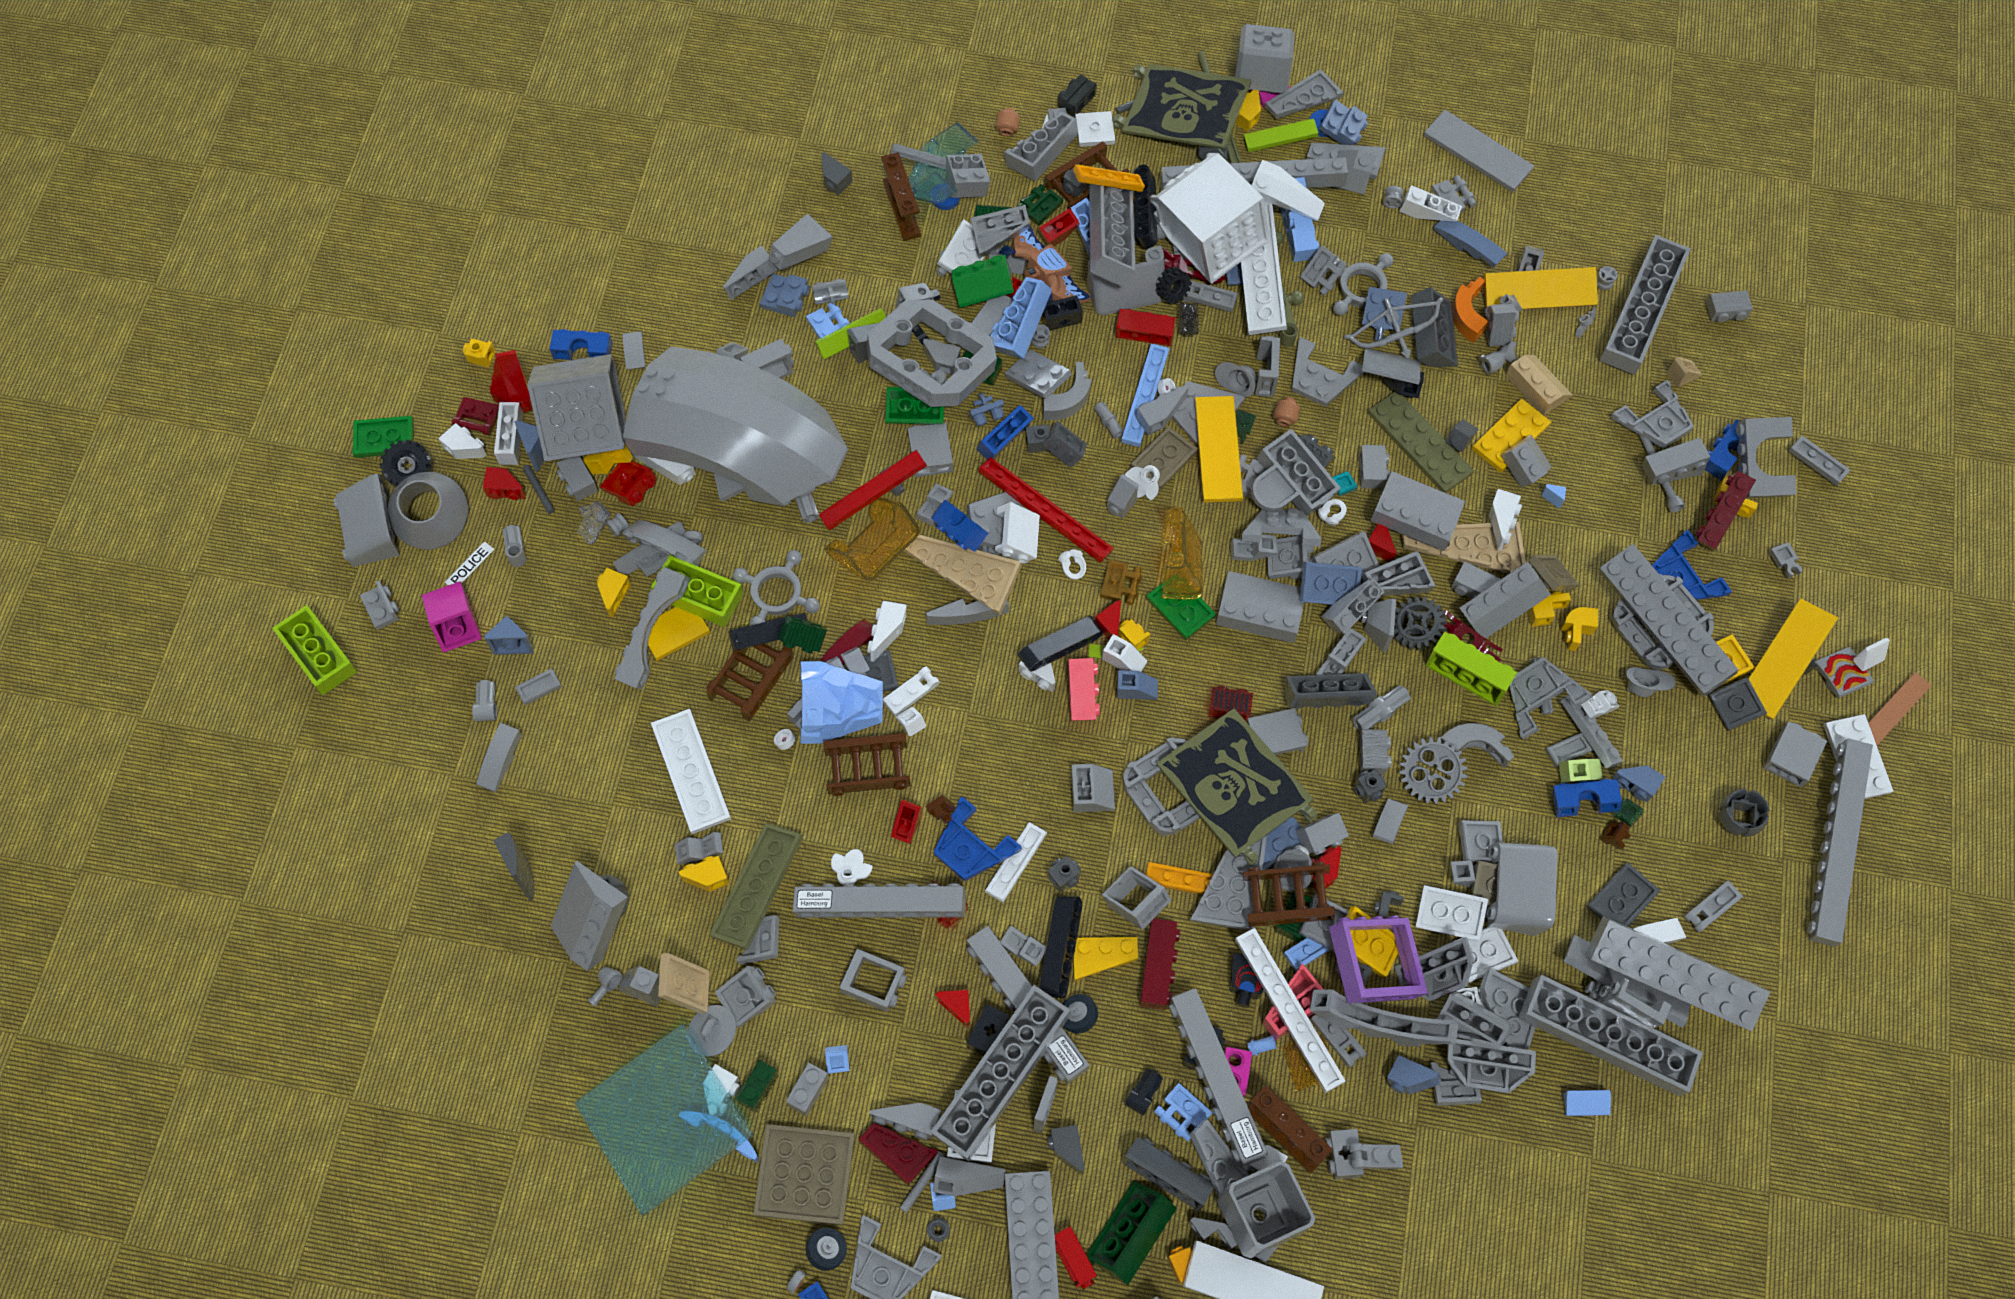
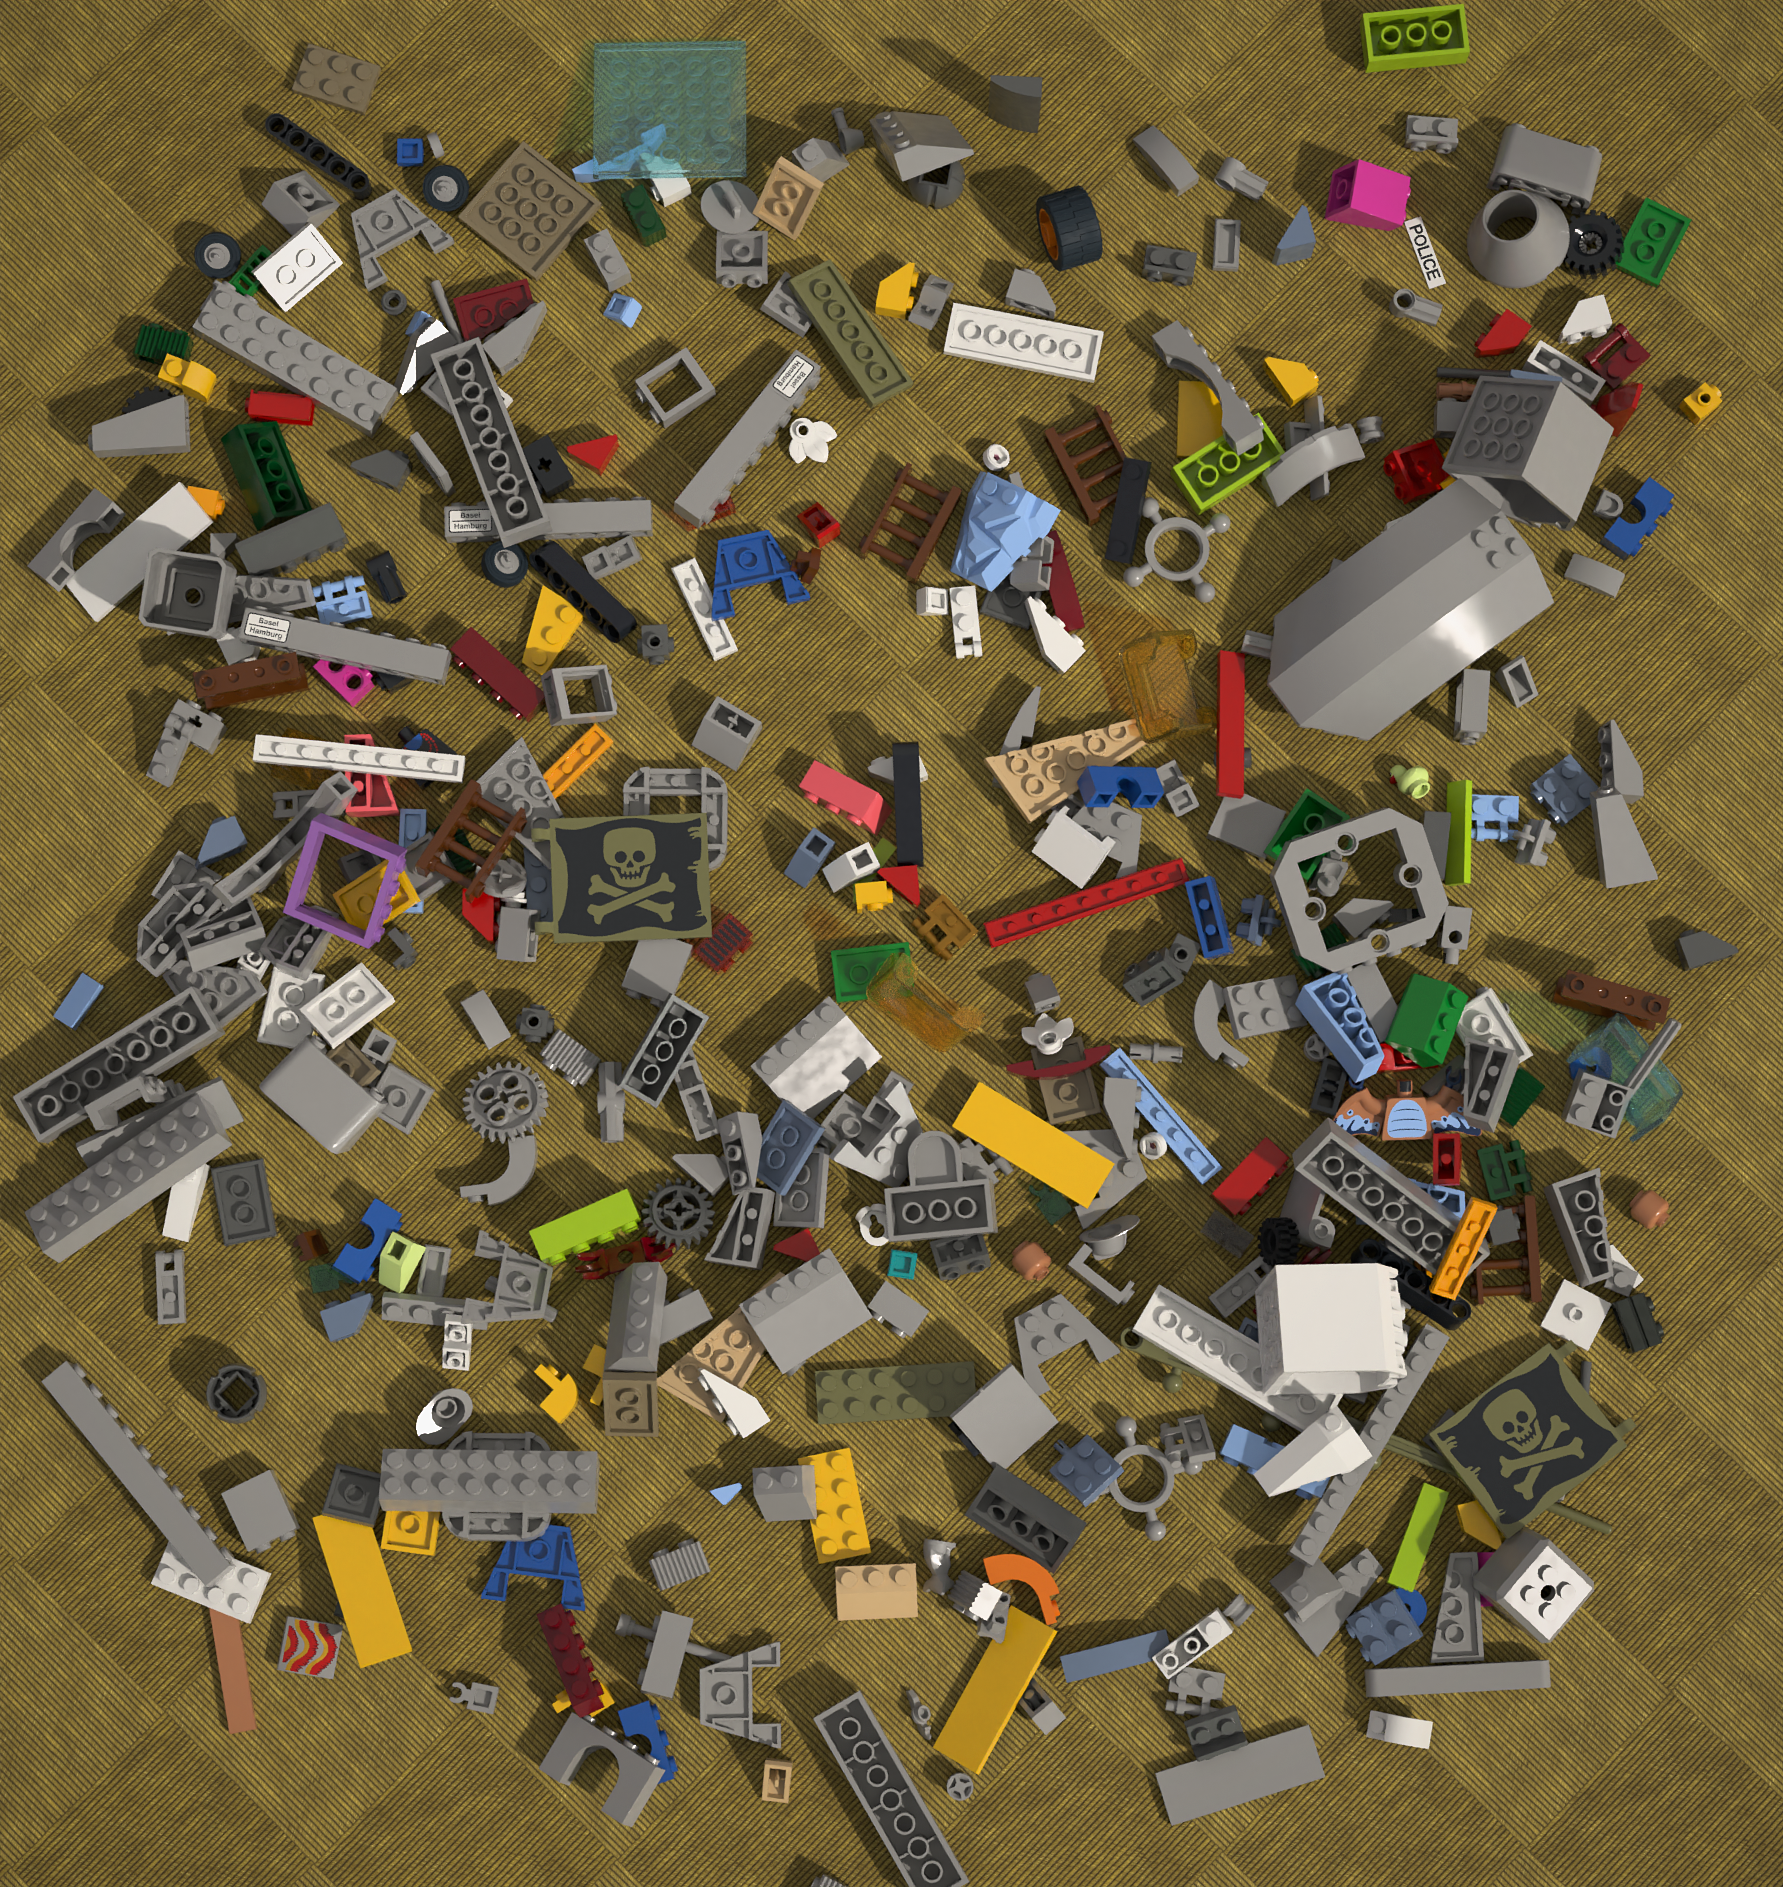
camera: 125 degrees right, 15 degrees up
(555, 487) = (1455, 390): none -> nougat pin
(575, 714) = (1169, 265): none -> dark grey bracket
(590, 781) = (1069, 228): none -> black wheel
(594, 521) = (1390, 407): clear plate -> none
(652, 787) = (1030, 294): none -> light grey slope
(694, 536) = (1302, 500): light grey tile -> none
(802, 634) = (1100, 541): dark green brick -> none
(837, 373) = (1410, 781): none -> yellowish green animal
(1078, 557) = (1009, 902): white piece -> none
(1143, 444) = (1026, 1069): none -> dark red slope
(1262, 1045) = (353, 717): light blue pin -> none
(1353, 89) = (1457, 1678): none -> light grey beam
(1391, 83) = (1399, 1729): none -> white brick
(1392, 316) = (1066, 1467): light grey piece -> none
(1462, 435) = (867, 1439): dark grey brick -> none
(1469, 169) = (1215, 1733): none -> dark grey bracket
(1617, 494) = (679, 1565): none -> light grey brick
(1819, 460) = (563, 1842): light grey plate -> none
(1872, 655) = (304, 1691): white slope -> none

